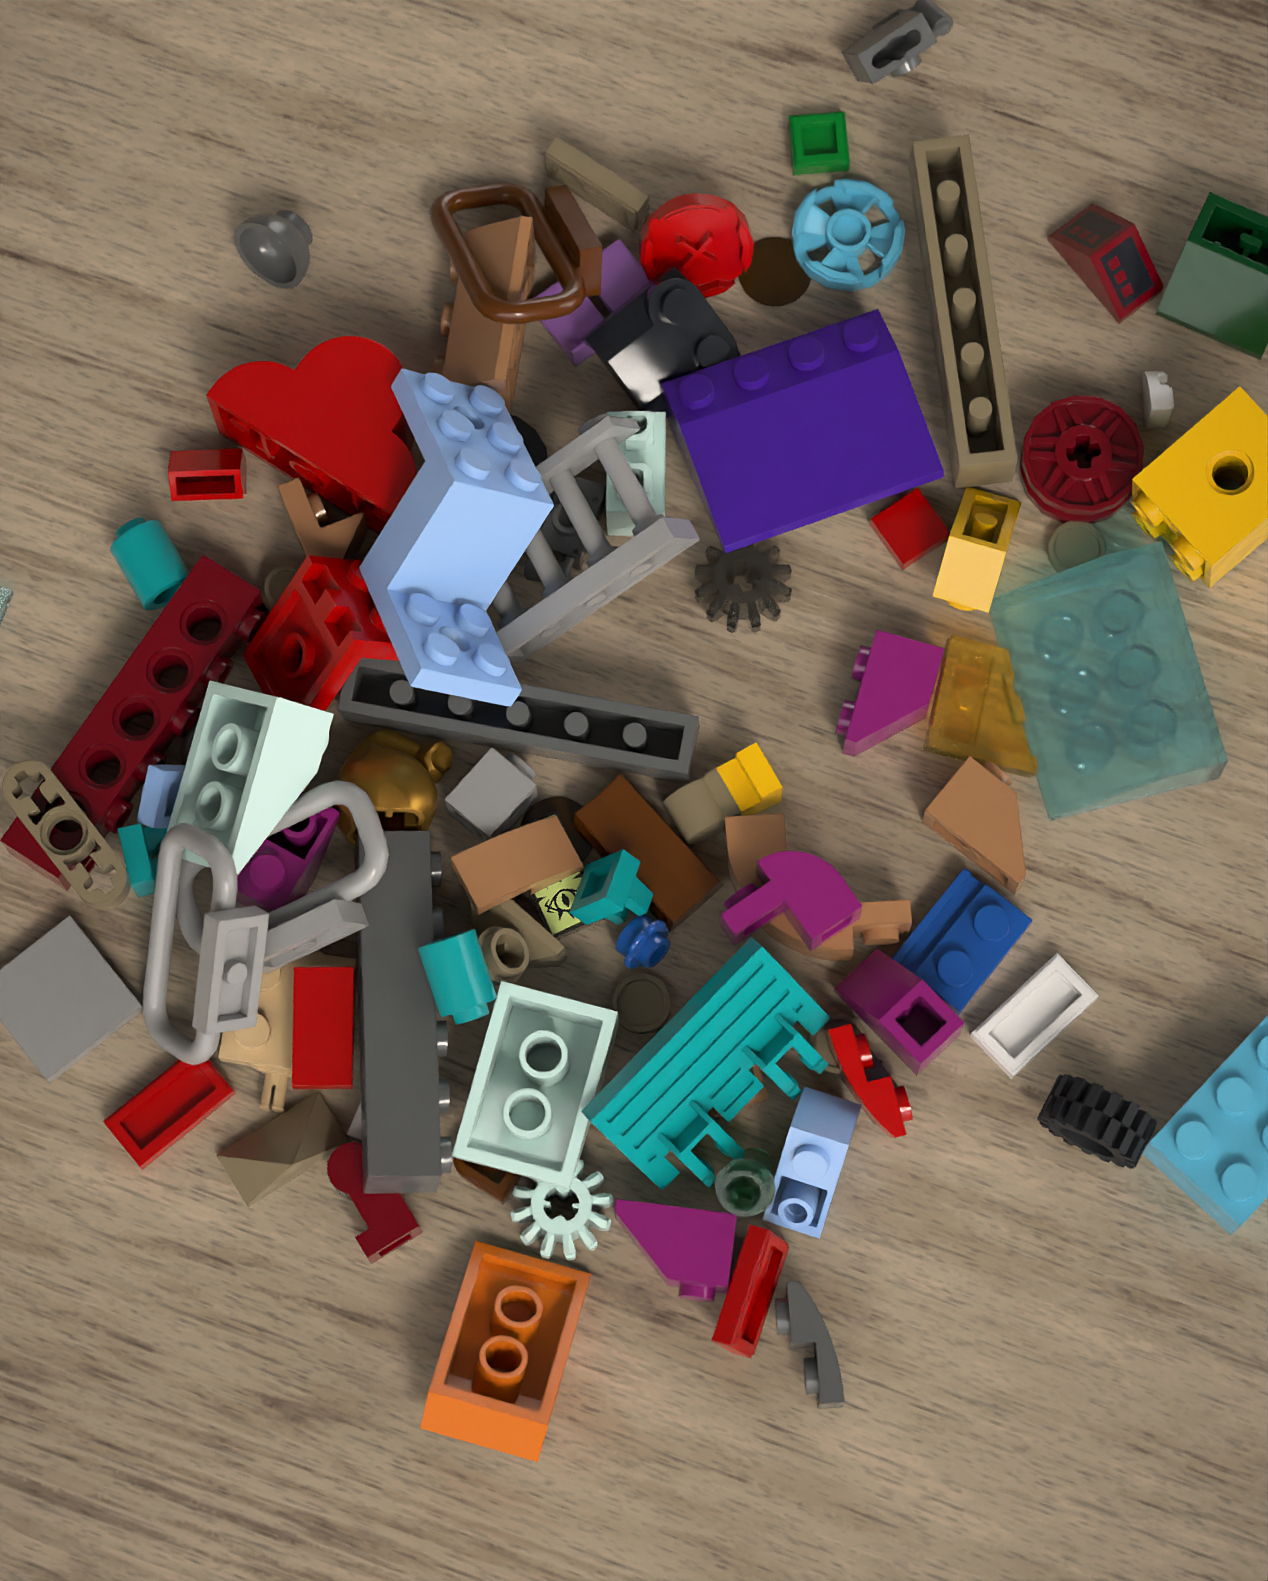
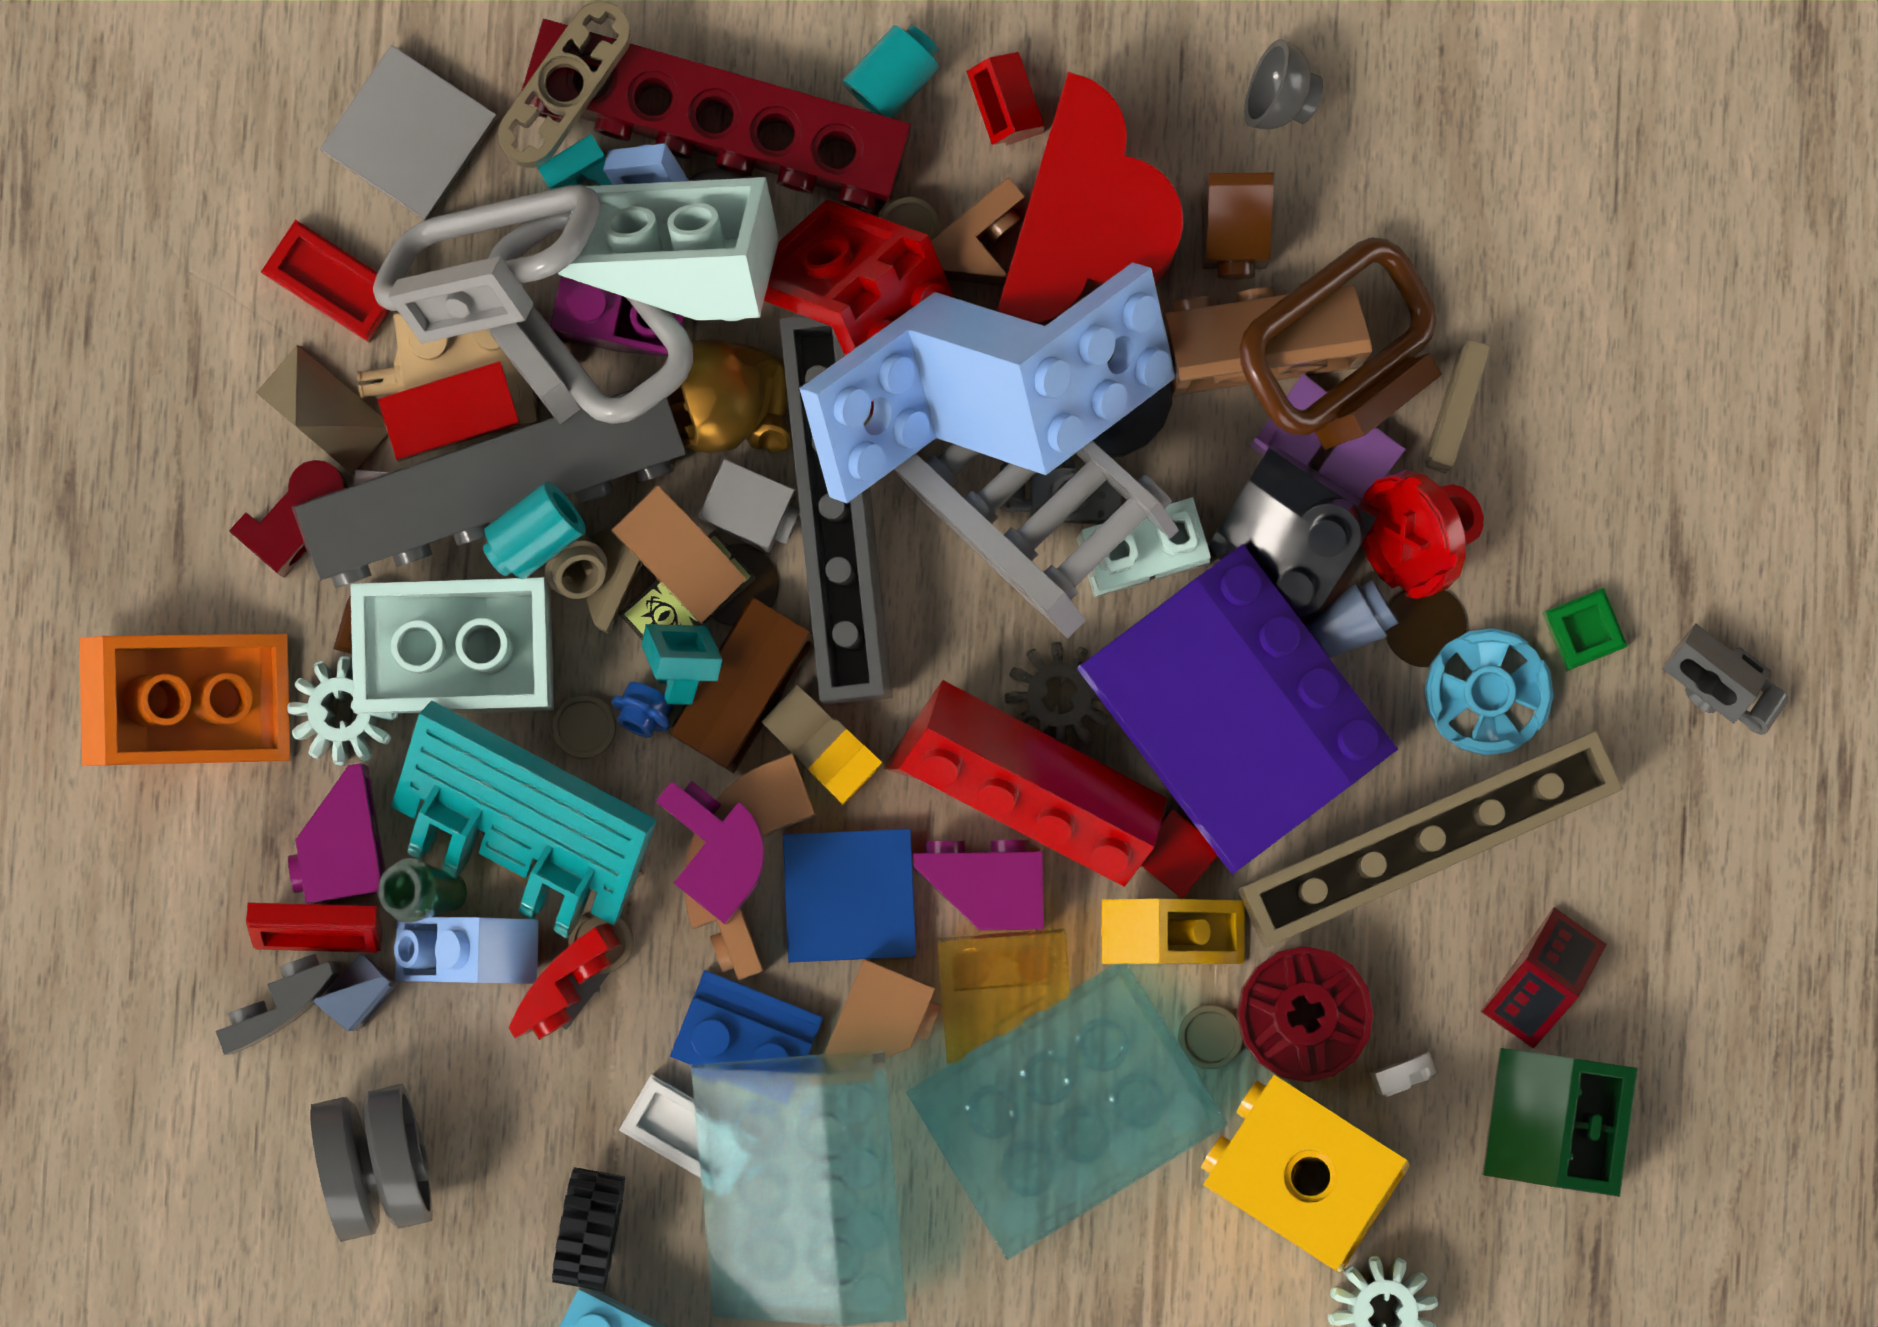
camera: 65 degrees right, 10 degrees up
(381, 308) = (1237, 223): none -> reddish brown slope
(751, 317) = (1353, 620): none -> sand blue cone
(811, 624) = (1031, 783): none -> red wedge
(822, 1271) = (357, 994): none -> sand blue slope
(864, 814) = (849, 895): none -> blue tile
(900, 1010) = (648, 992): magenta slope -> none
(982, 1287) = (361, 1164): none -> dark grey wheel
(1114, 922) = (800, 1189): none -> clear light blue slope

